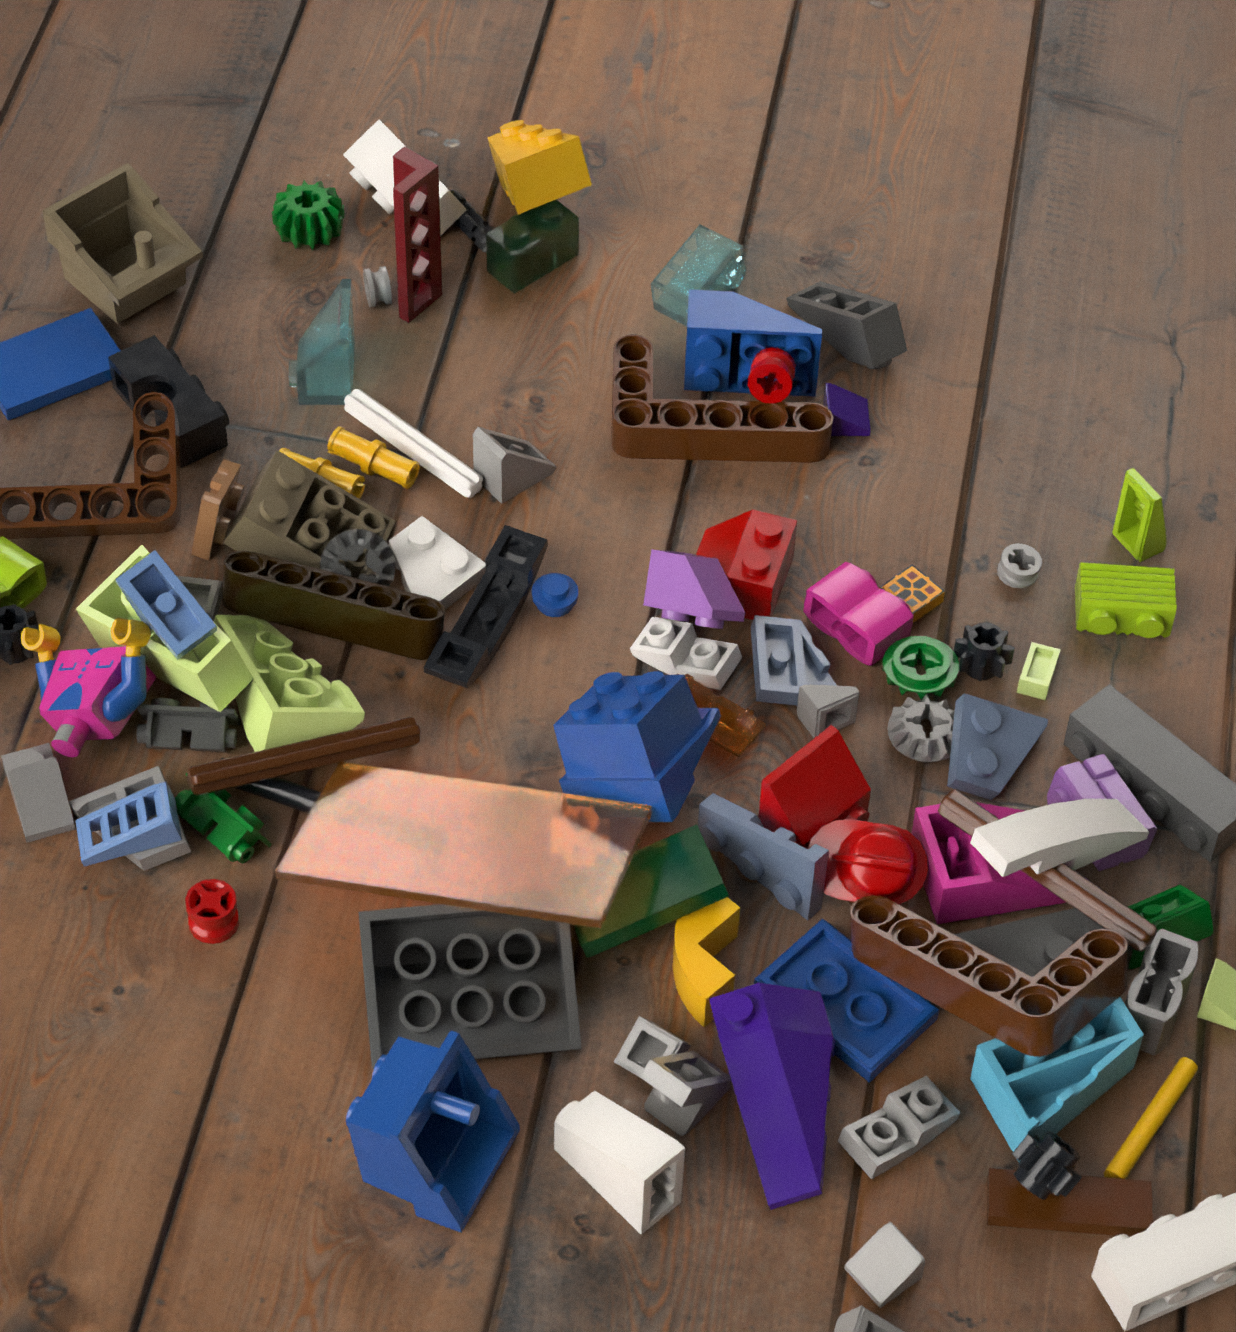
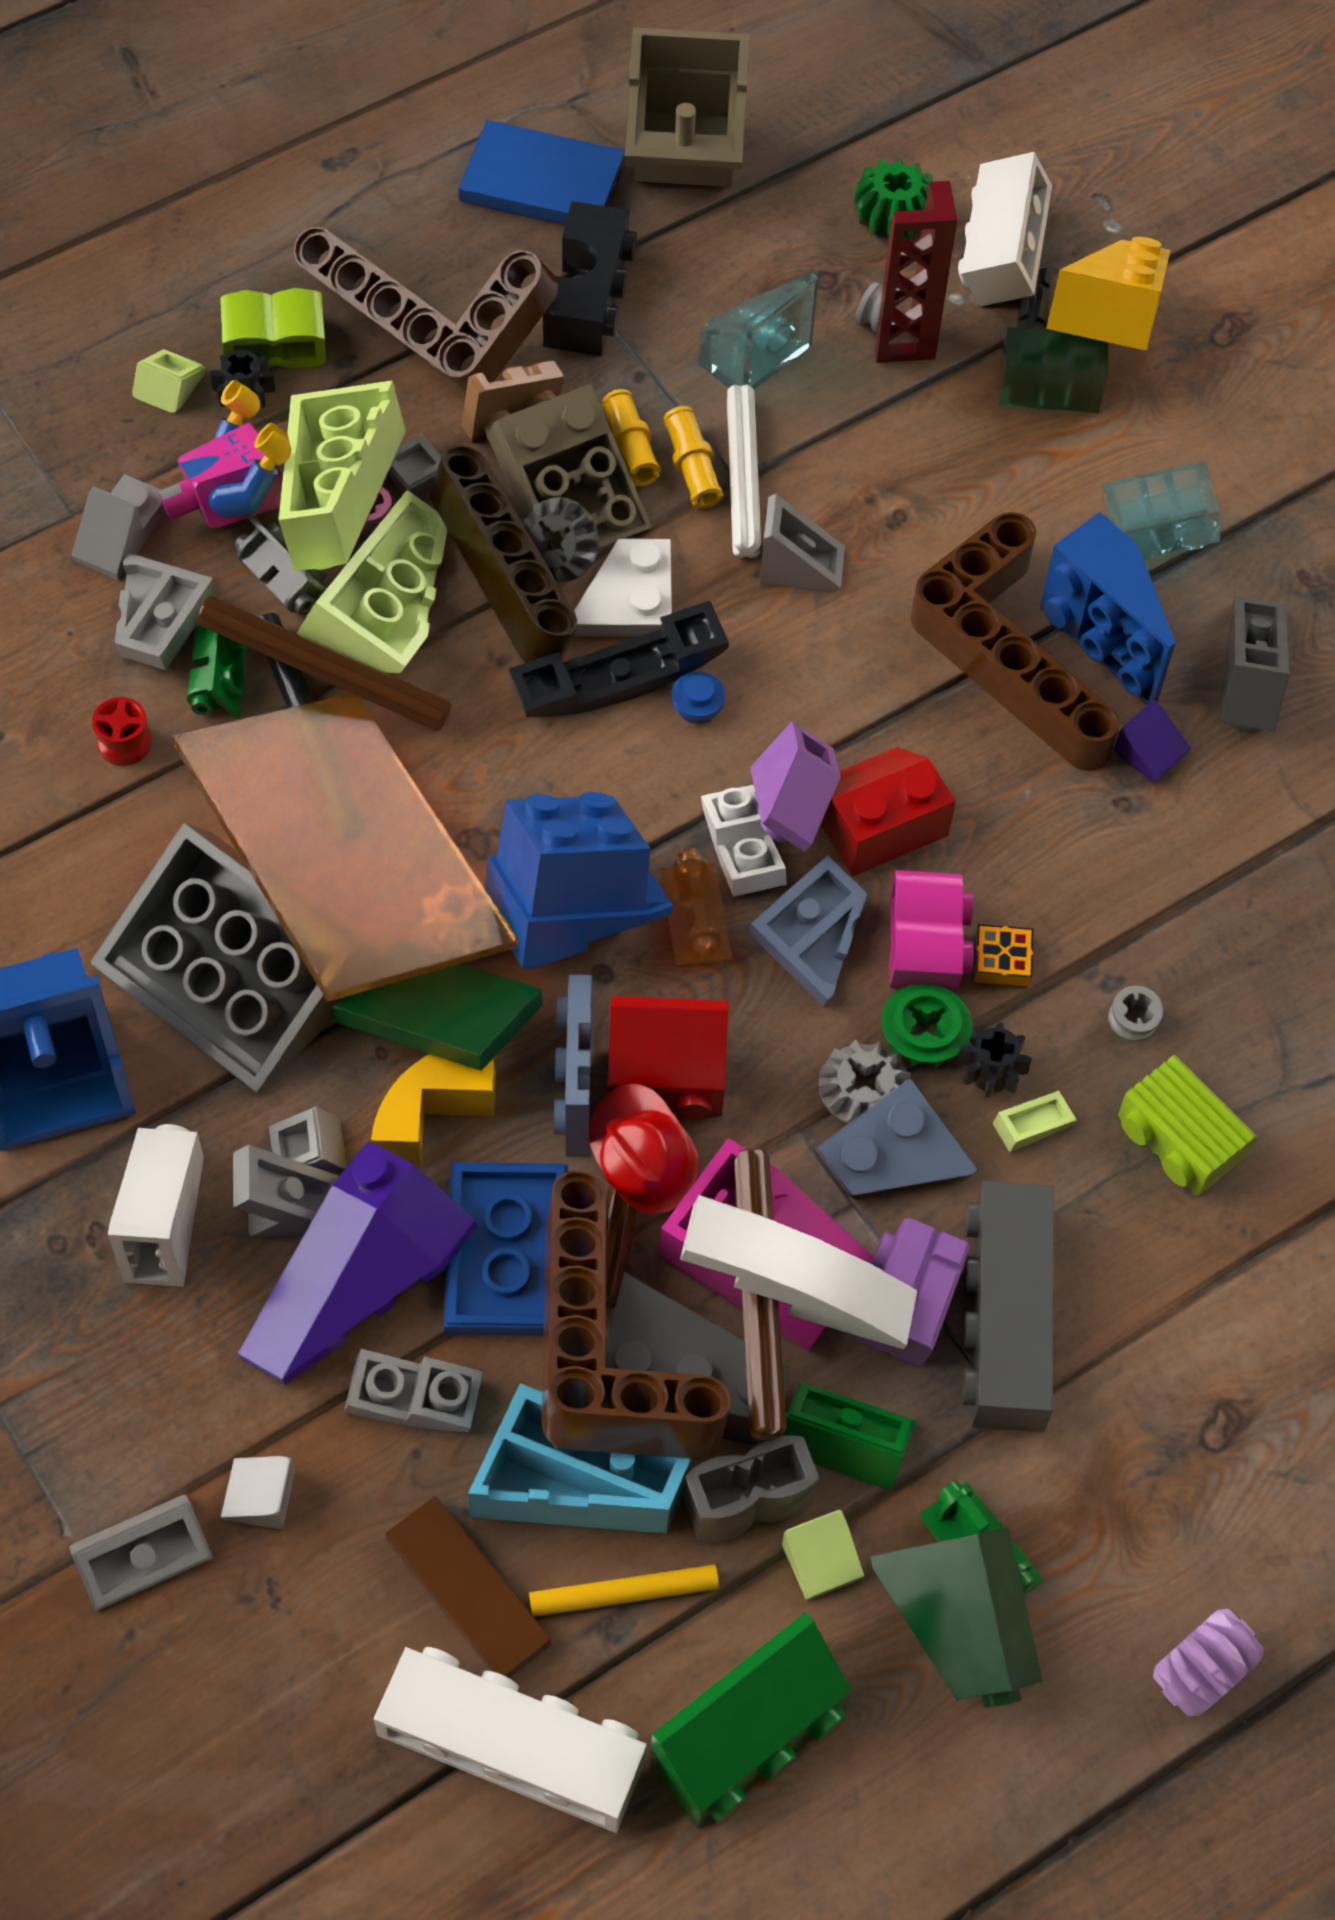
camera: 45 degrees right, 10 degrees up
(148, 834) = (150, 631): medium blue slope -> none
(166, 605) = (309, 440): medium blue slope -> none
(774, 364) = (1094, 651): red wheel -> none
(826, 706) = (794, 991): light grey slope -> none
(1046, 1165) = (461, 1537): black gear -> none
(1140, 518) = (1289, 1067): lime slope -> none

